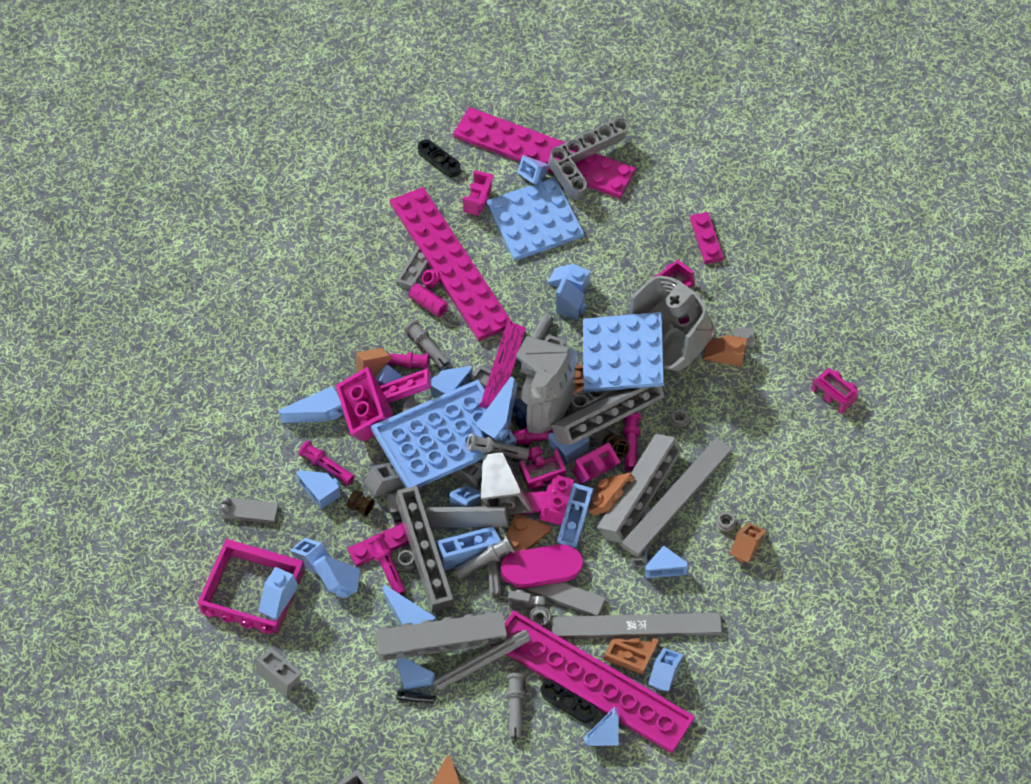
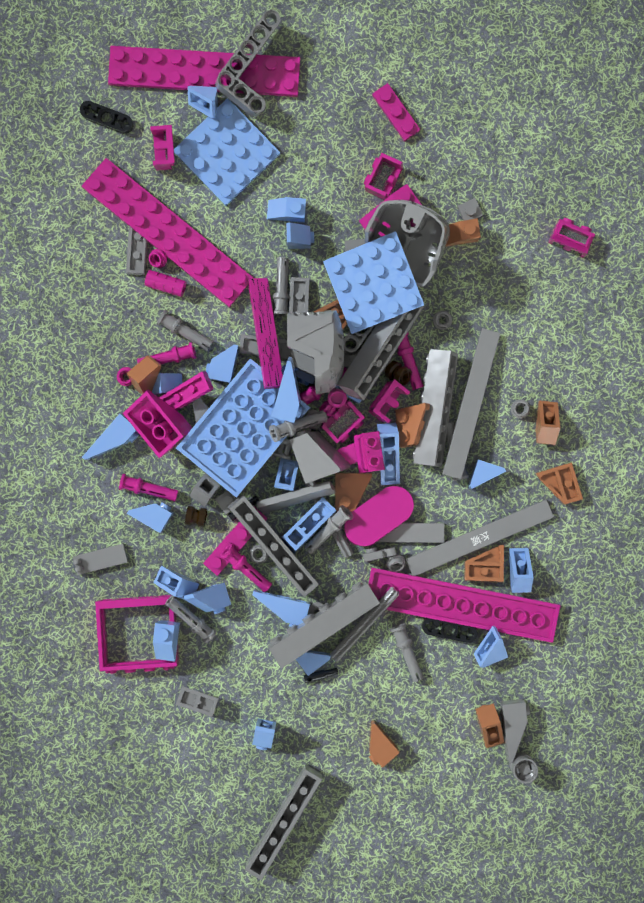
camera: 25 degrees left, 30 degrees up
(313, 598) = (197, 625): none -> light grey pin
(331, 725) = (264, 734): none -> light blue slope
(348, 361) = (120, 374): none -> dark pink plate
(546, 443) = (337, 398): none -> dark pink plate
(741, 602) = (562, 483): none -> nougat wing

